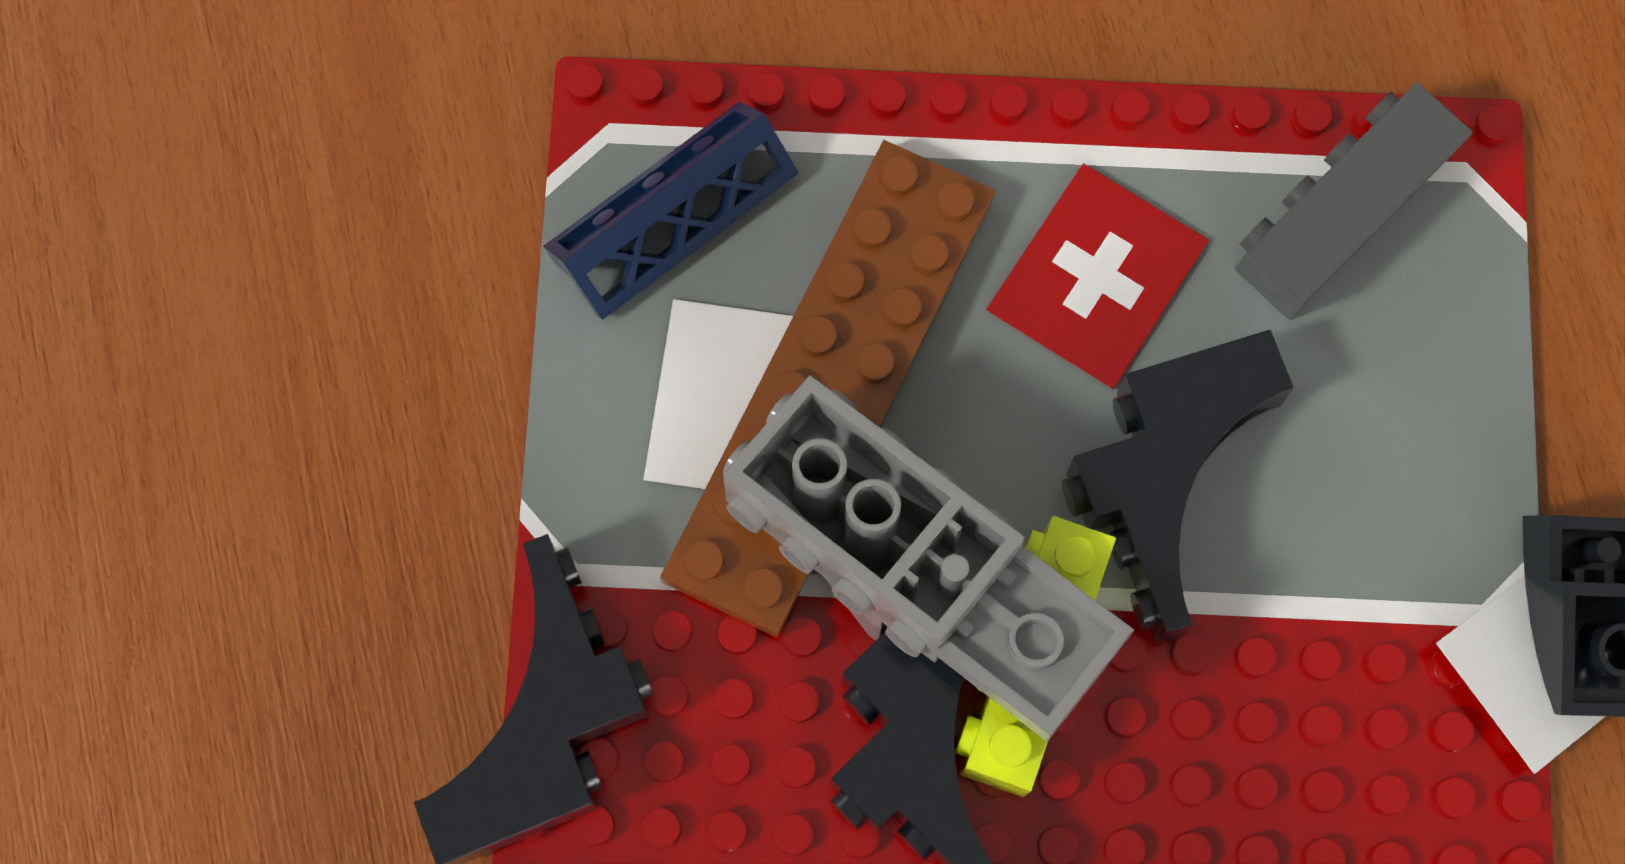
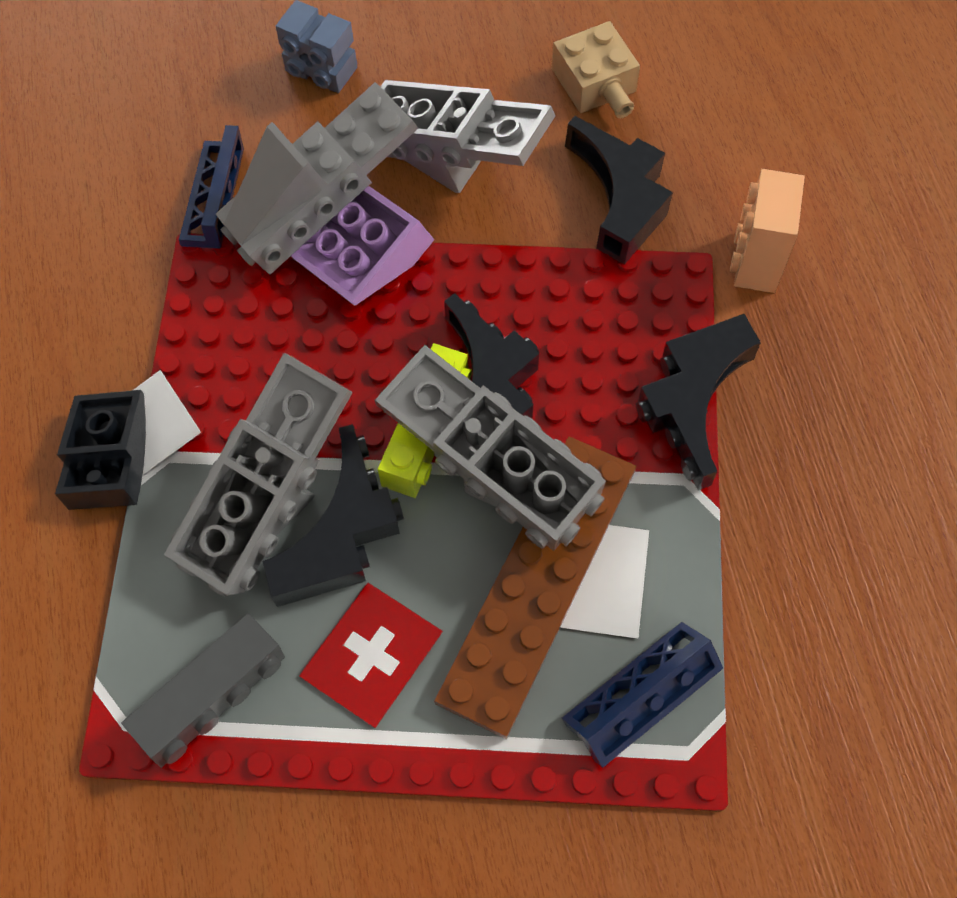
camera: 175 degrees left, 10 degrees down
(1319, 512) = (259, 479): none -> light grey wedge

